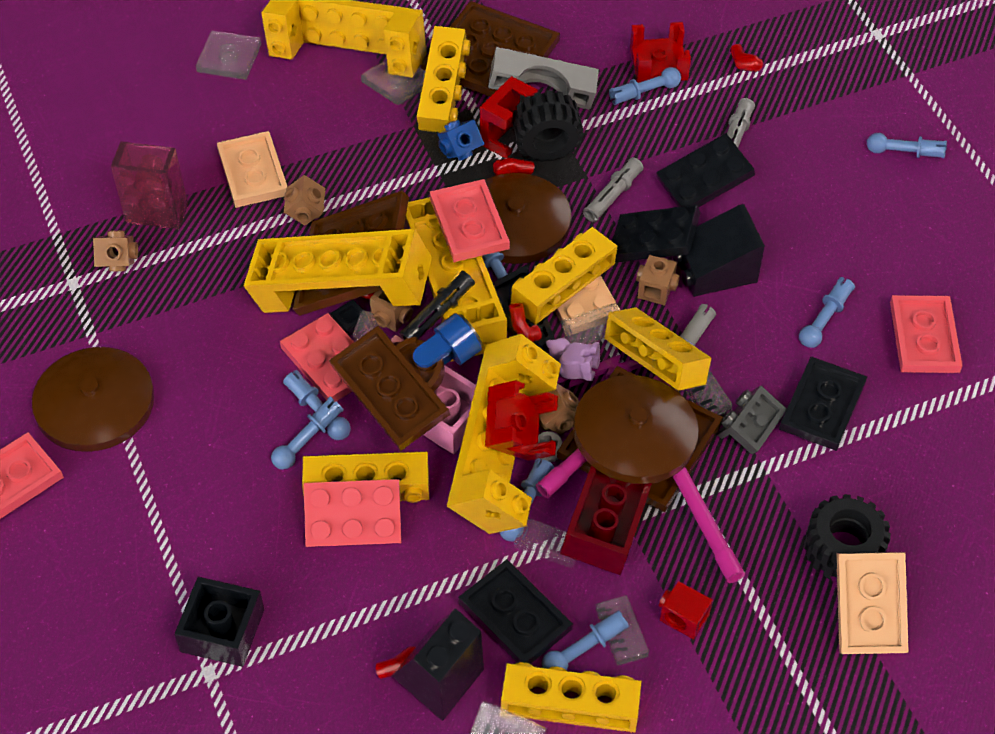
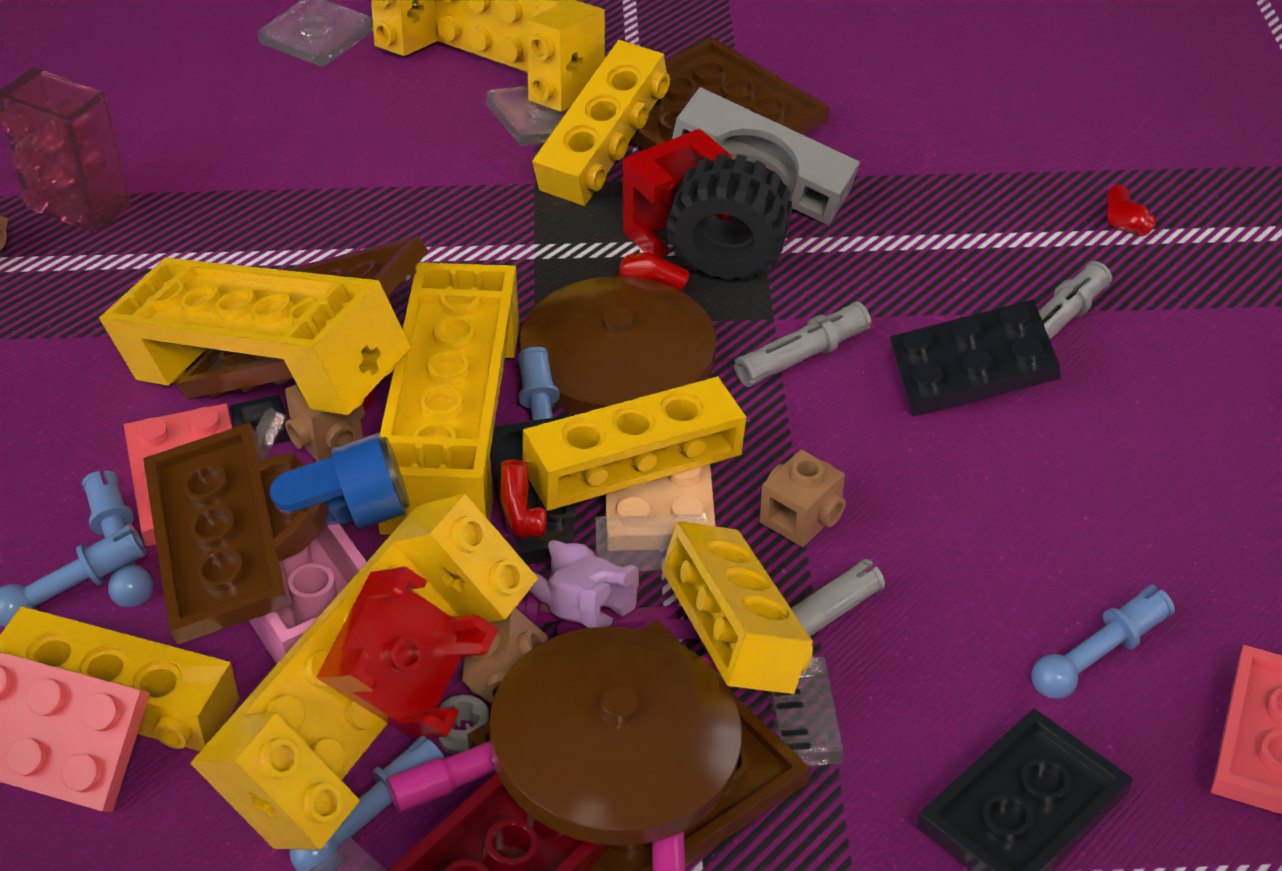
camera: 20 degrees right, 10 degrees down
(252, 169) = (248, 179): light nougat plate -> none
(304, 200) = (282, 238): medium nougat brick -> none
(460, 139) = (597, 199): blue brick -> none
(461, 283) = (383, 418): black pin -> none
(469, 220) = (503, 309): coral plate -> none
(655, 55) = (979, 179): red panel -> none
(656, 233) = (834, 422): black plate -> none
(669, 78) = (981, 208): medium blue pin -> none
(723, 253) = (936, 485): black slope -> none
(752, 419) = (870, 793): dark grey bracket -> none

